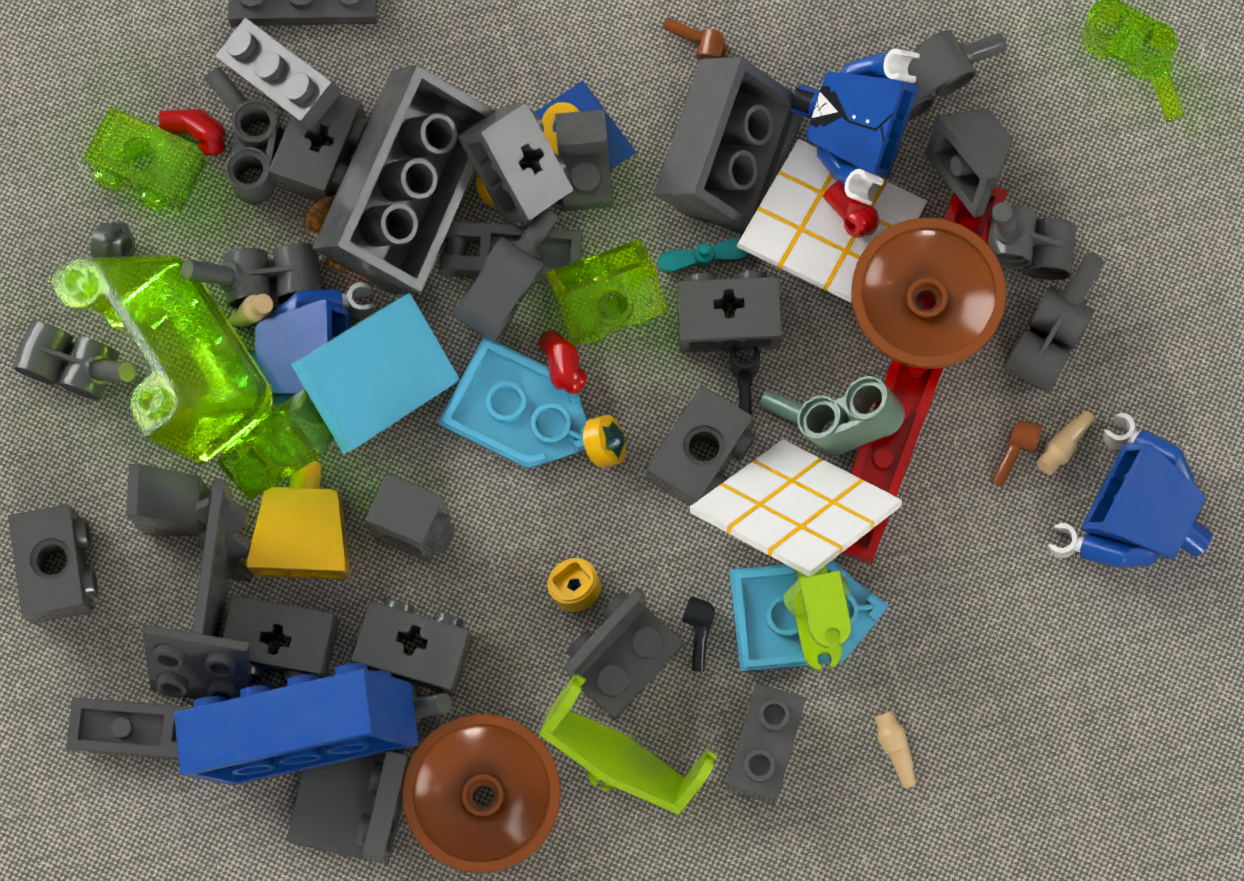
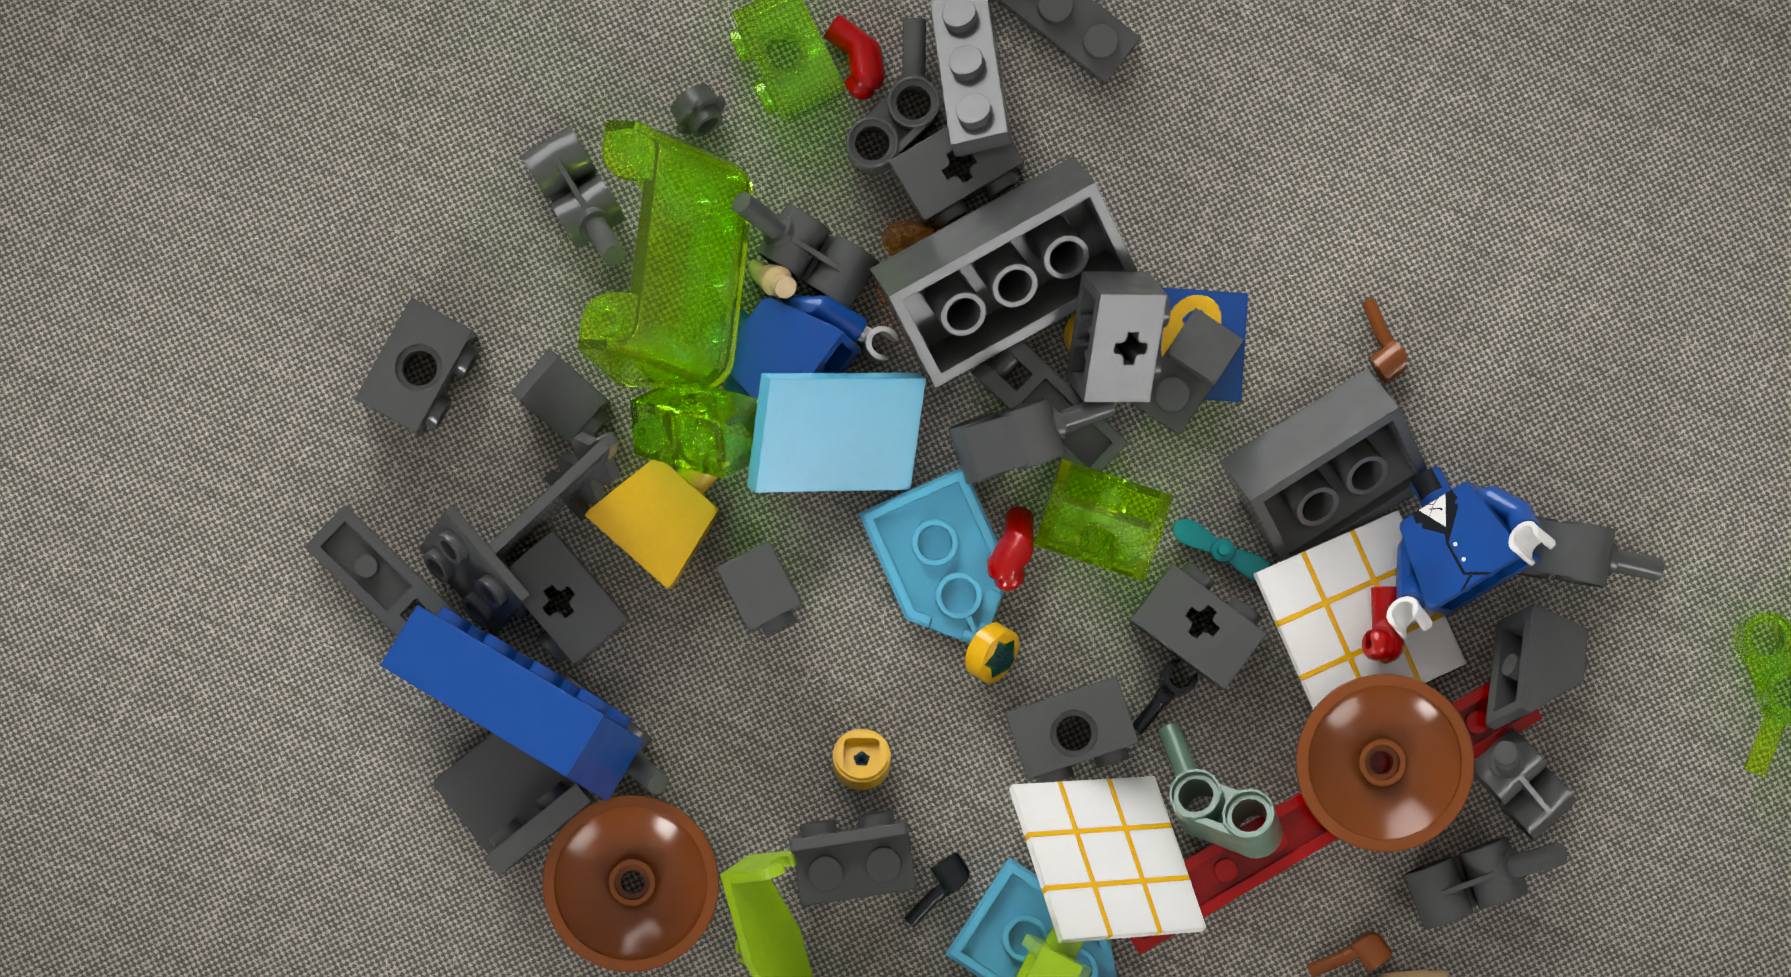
camera: 35 degrees right, 10 degrees up
(432, 668) = (644, 685): dark grey brick -> none

